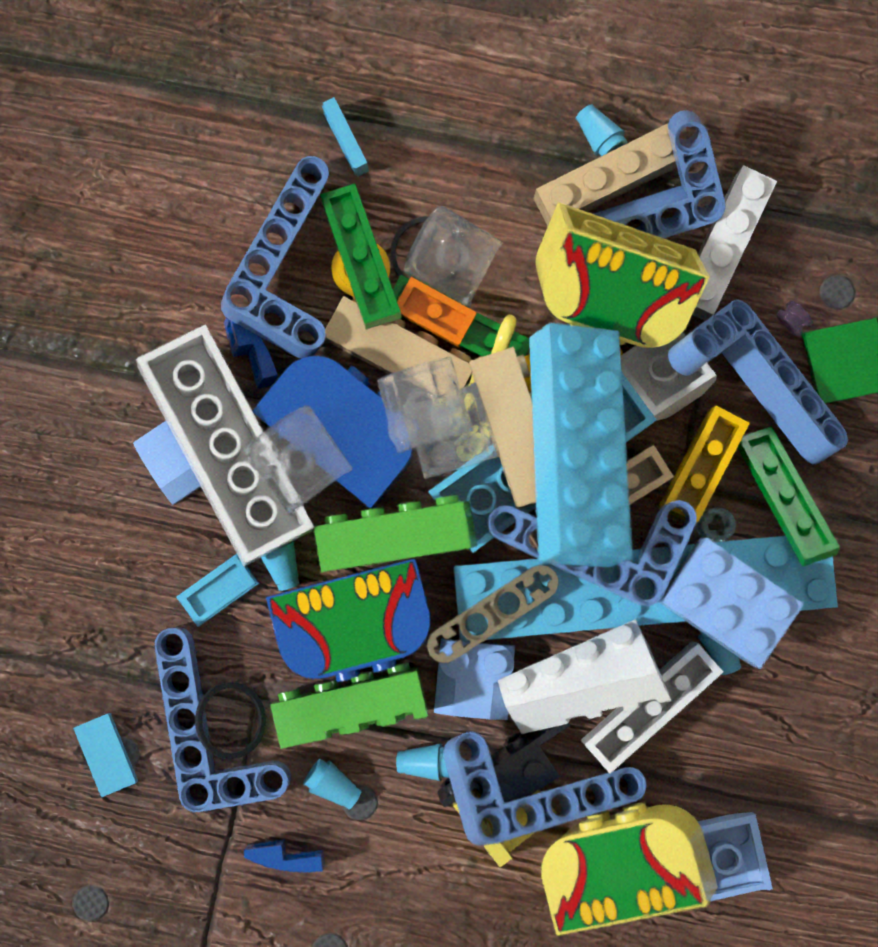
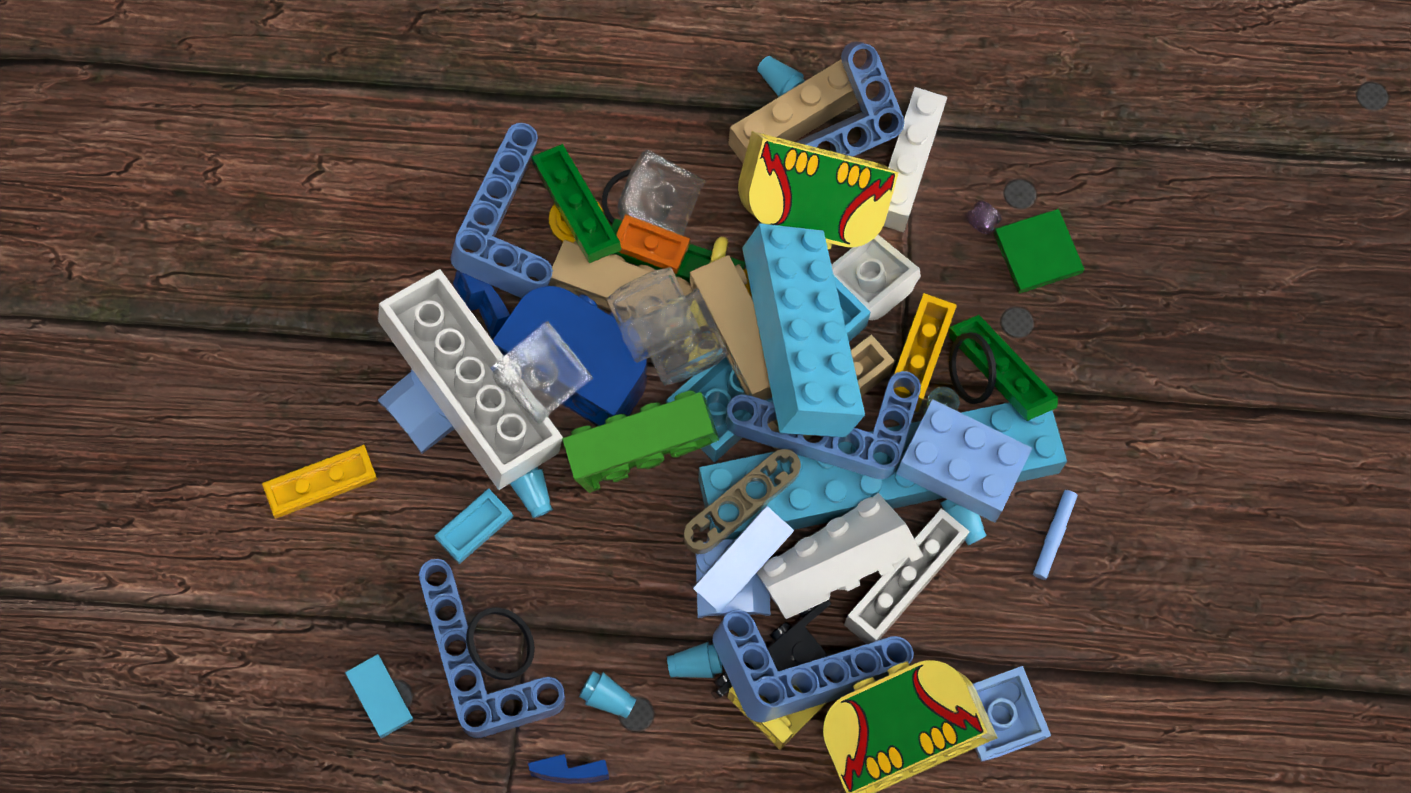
camera: 10 degrees left, 15 degrees down
(66, 523) = (319, 481): none -> yellow tile
(345, 137) = (548, 107): medium azure tile -> none
(349, 706) = (617, 614): bright green wedge -> none
(352, 622) = (609, 529): brick -> none
(486, 670) = (743, 559): none -> tile
(768, 374) = (967, 265): medium blue beam -> none
(774, 486) = (991, 364): none -> black piece
(812, 672) = (1055, 534): none -> light blue piece

